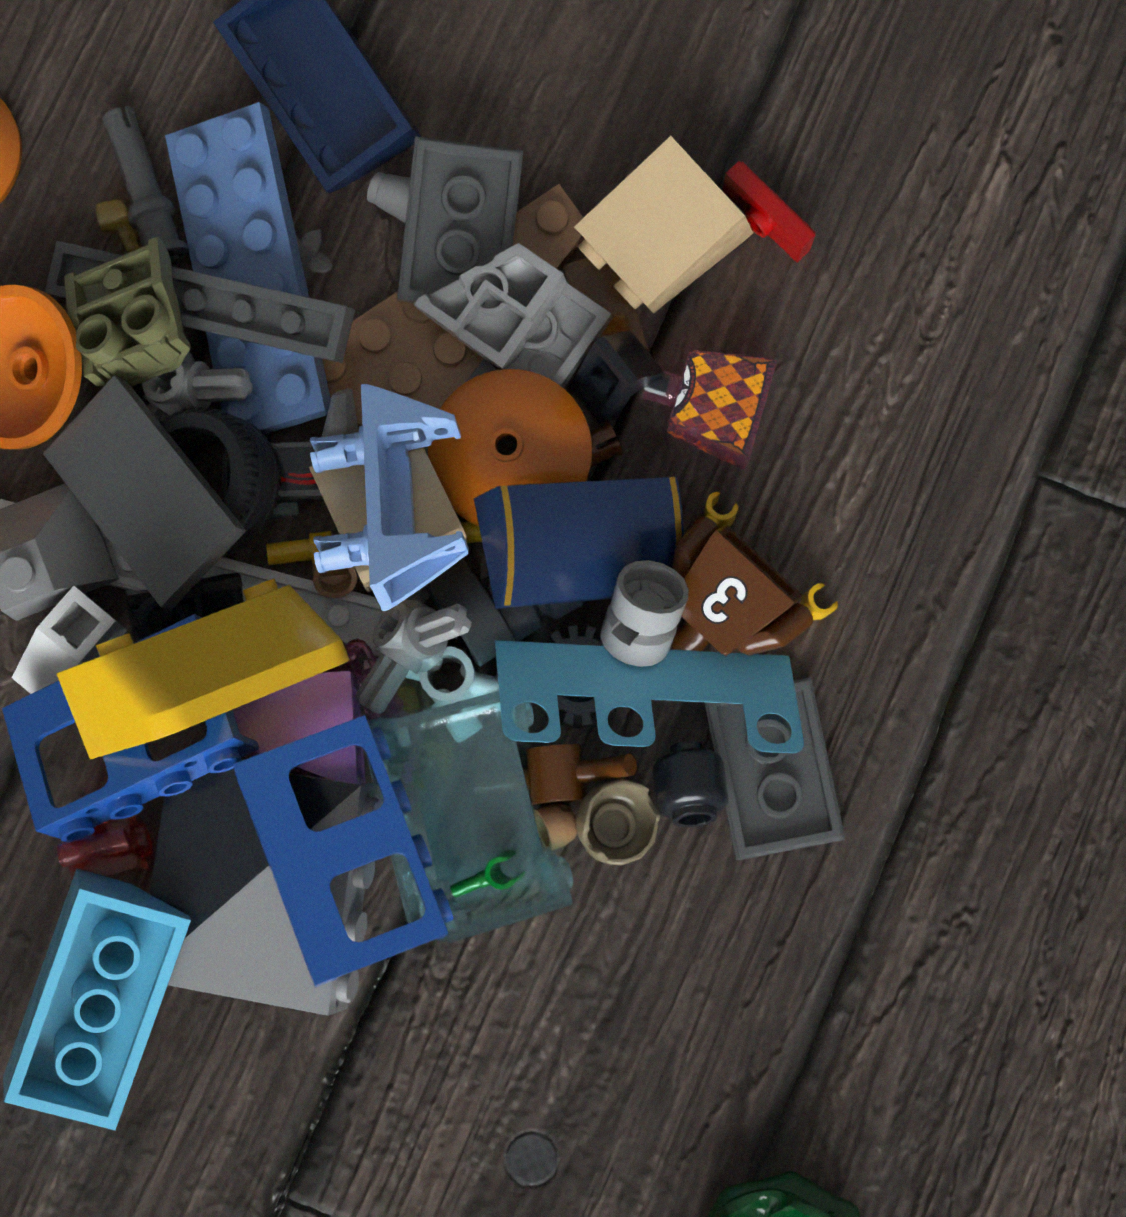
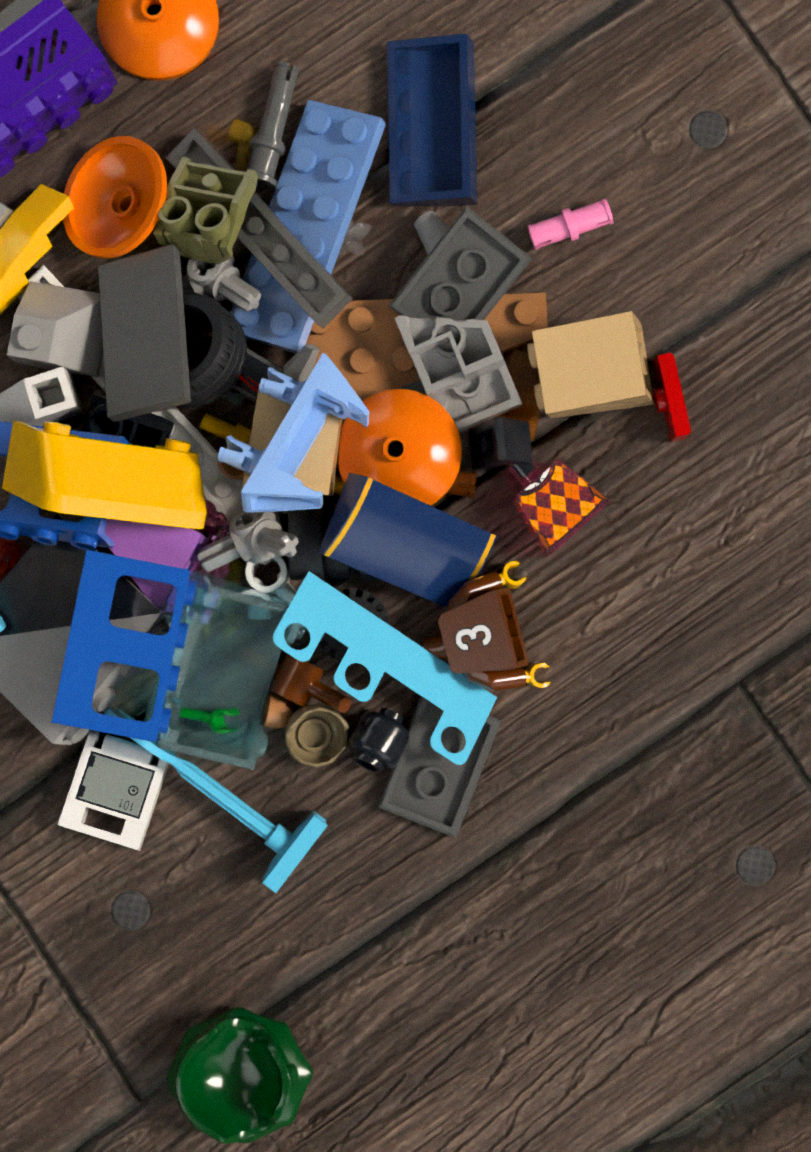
camera: 40 degrees right, 5 degrees up
(425, 1021) = (117, 783): none -> container
(538, 95) = (570, 224): none -> bright pink pin
(644, 613) = (415, 613): light grey wheel -> none
(666, 967) = (288, 846): none -> medium azure piece

